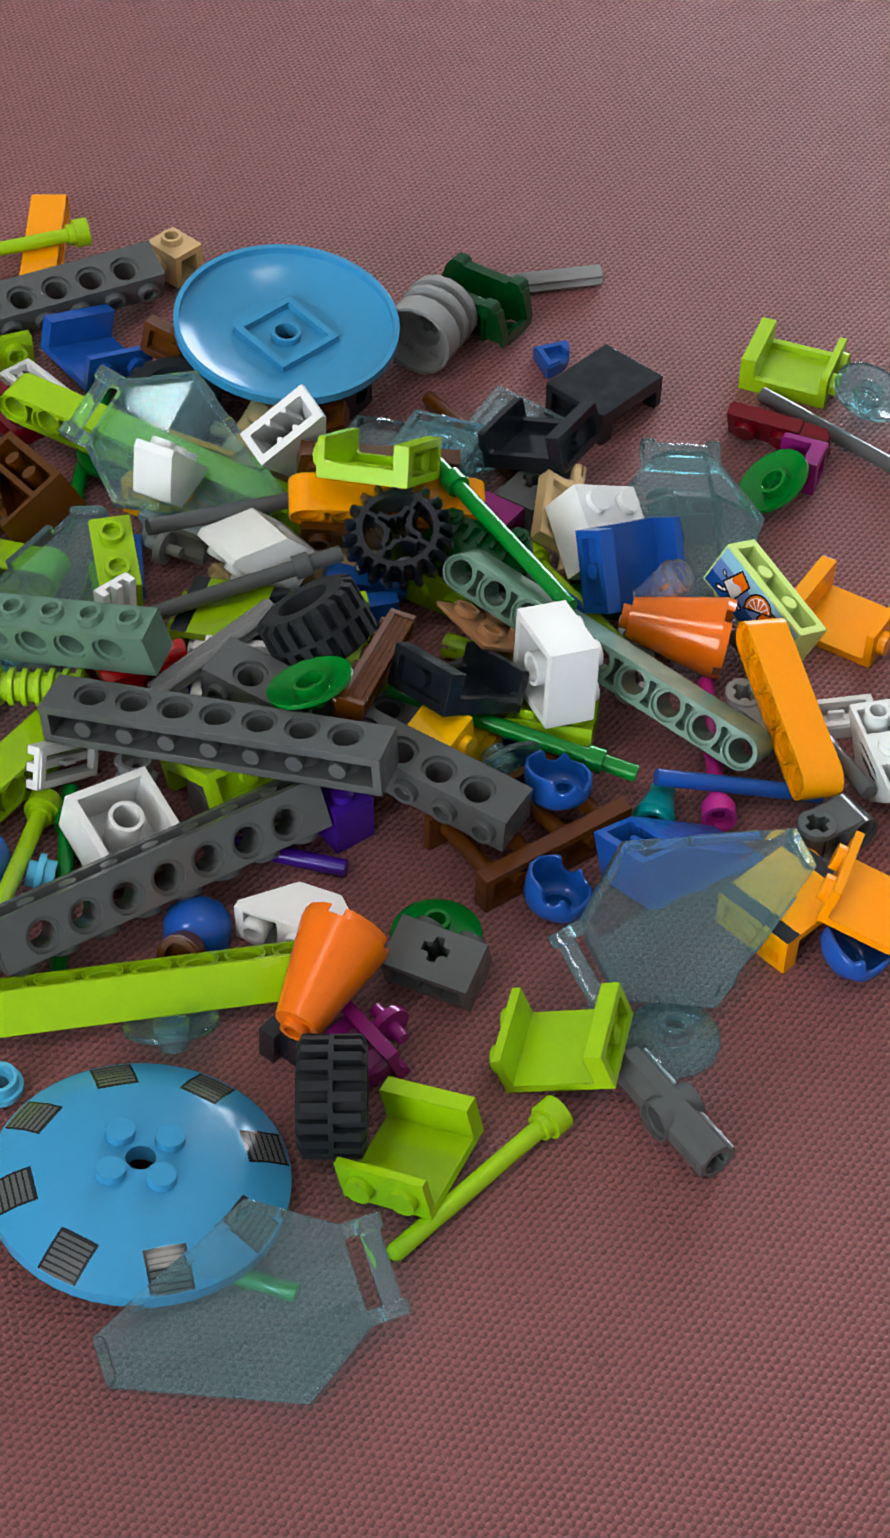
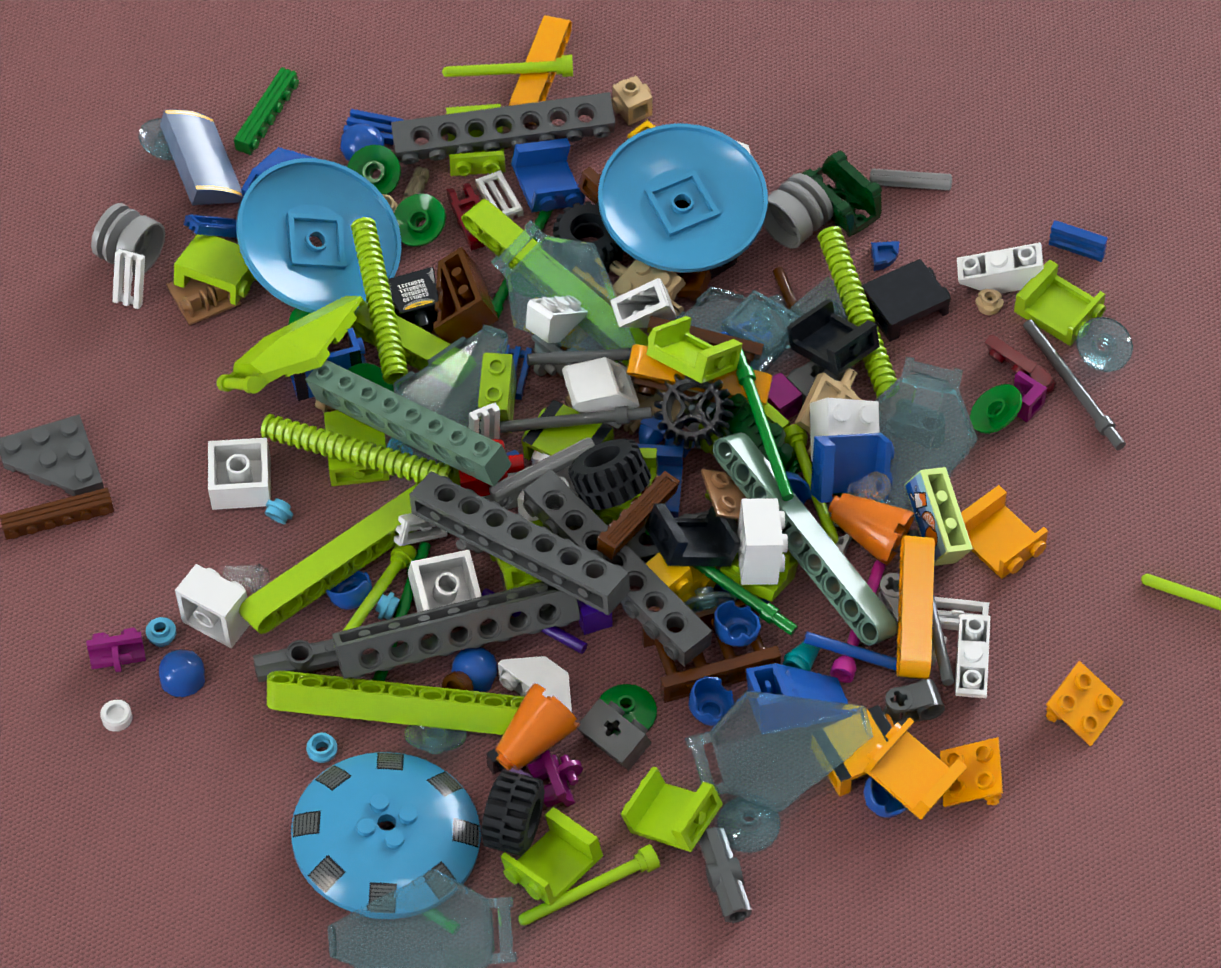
camera: 20 degrees right, 10 degrees up
(309, 683) = (586, 521): green dish -> none
(544, 399) = (855, 303): none -> lime piece
(705, 380) = (989, 307): none -> tan plate
(711, 338) = (1001, 269): none -> white slope
(782, 305) = (1078, 241): none -> blue tile

